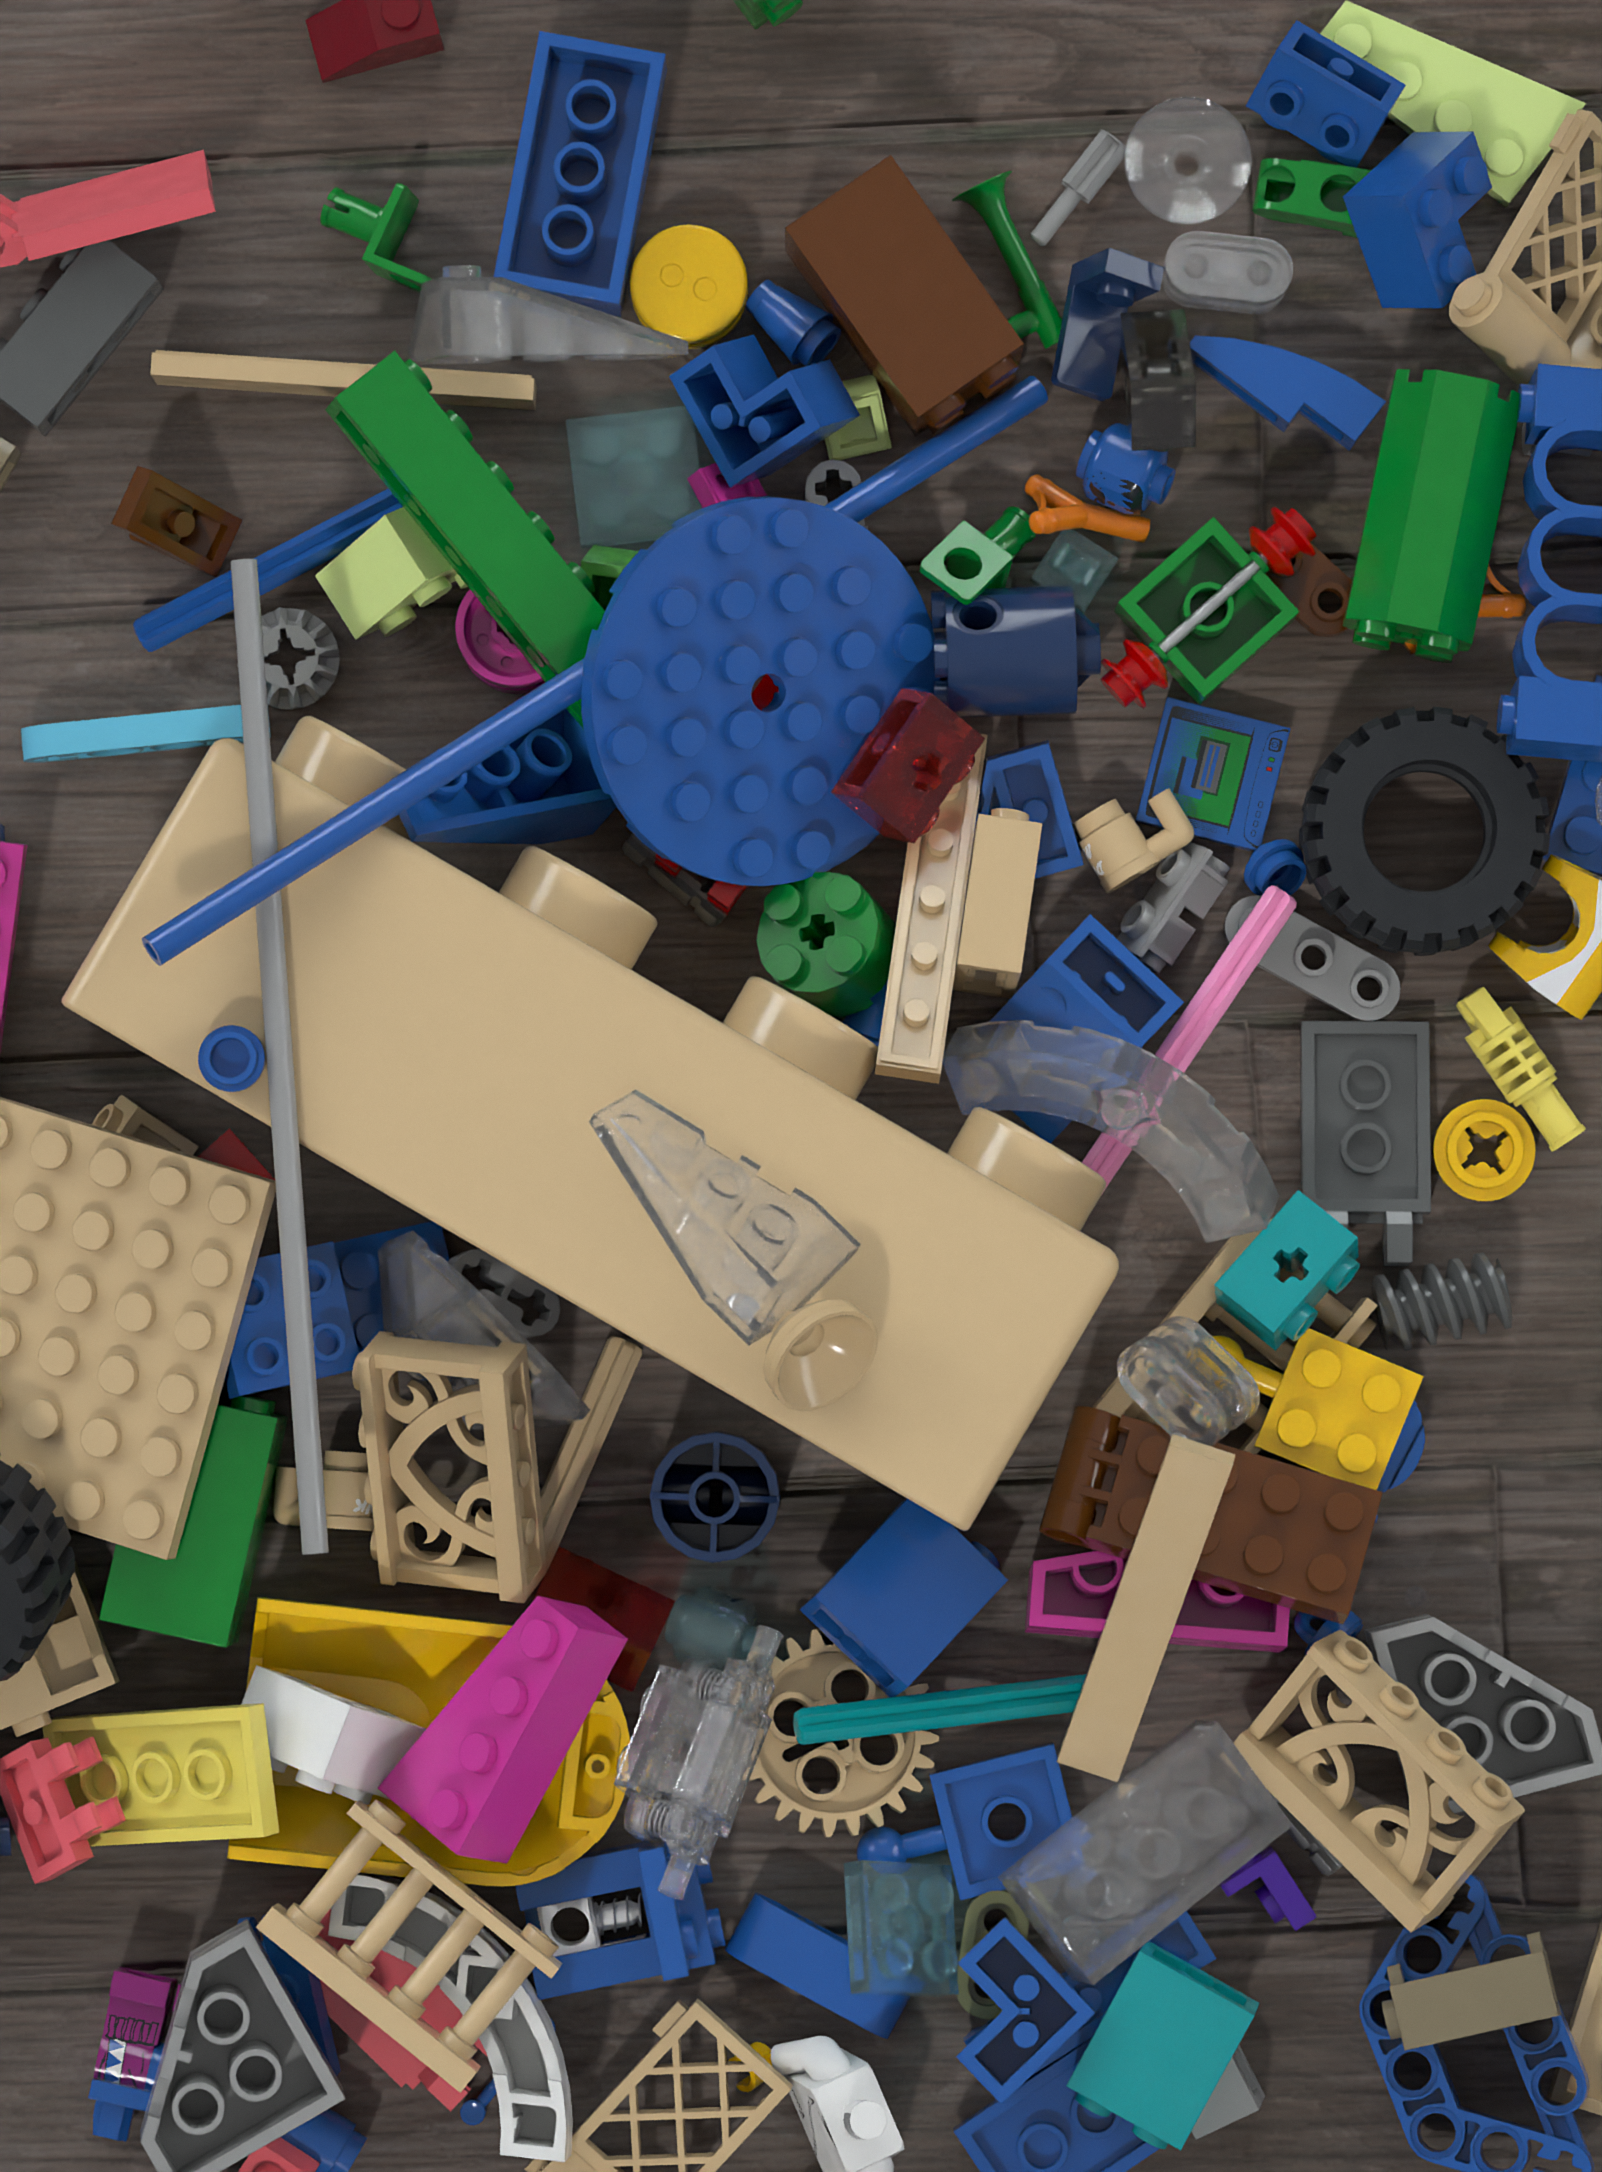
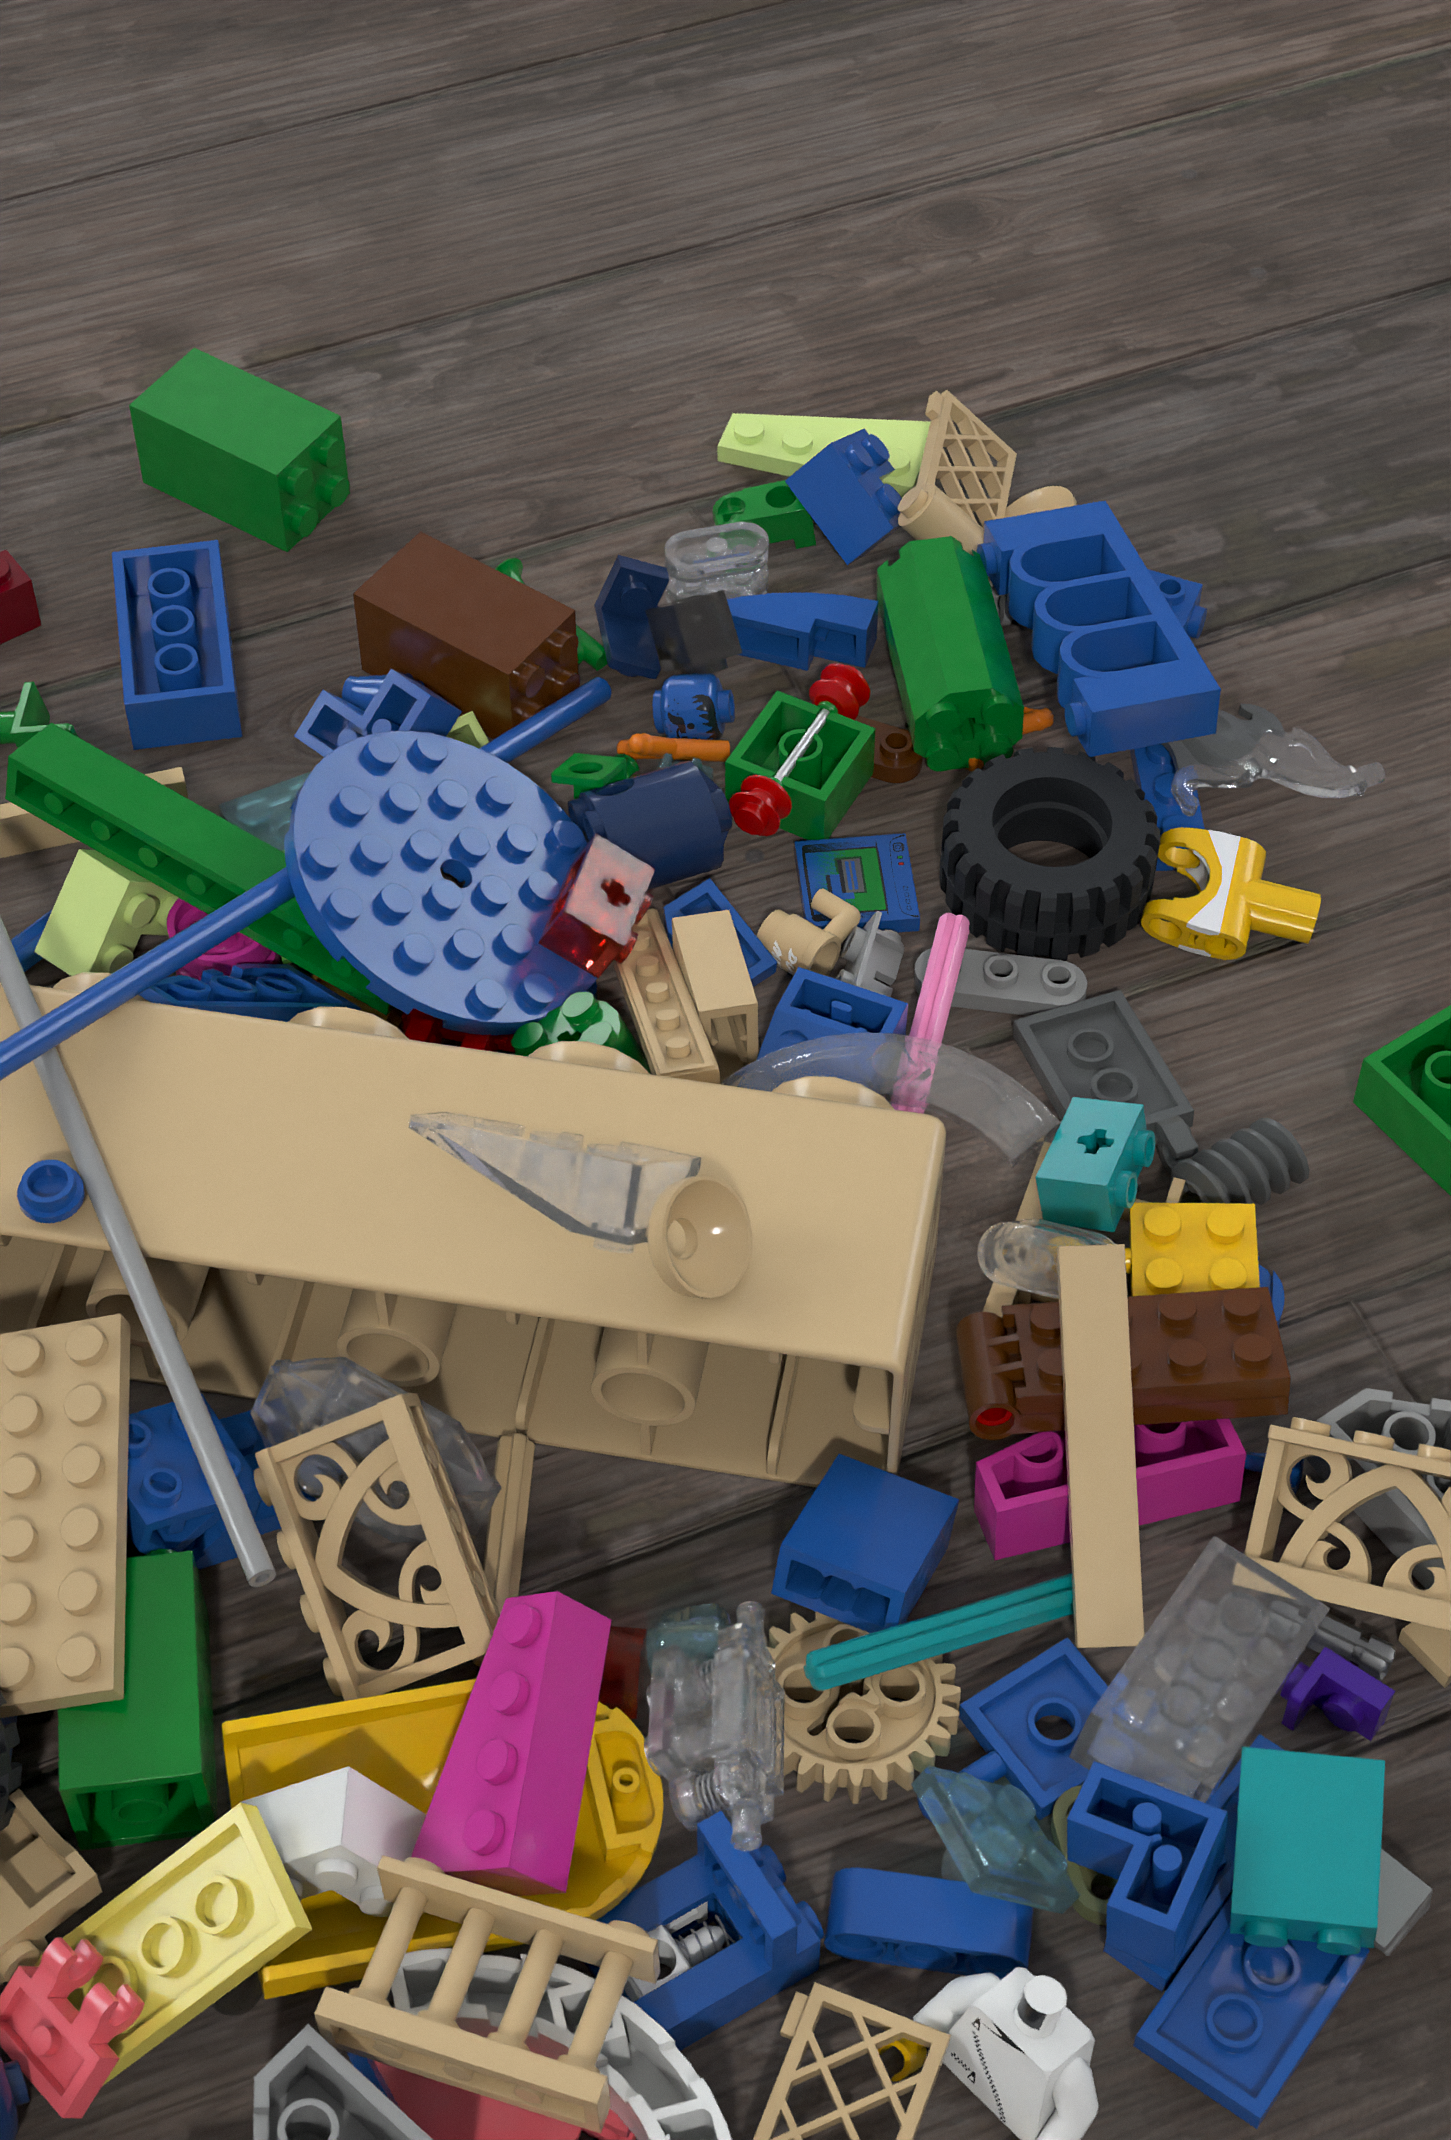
camera: 20 degrees left, 35 degrees down
(343, 1488) = (285, 1651): tan piece -> none
(493, 318) = (175, 728): clear wedge -> none
(683, 1496) = (650, 1509): dark blue cylinder -> none
(689, 284) = (281, 690): yellow head -> none
(1081, 182) = (582, 559): light grey axle -> none
(1193, 129) = (648, 516): clear dish -> none
(1275, 864) = (928, 915): blue plate -> none
(1325, 95) = (739, 453): blue brick -> none
(1513, 1154) = (1205, 1047): yellow gear -> none
(1518, 1066) = (1210, 998): light yellow hinge -> none

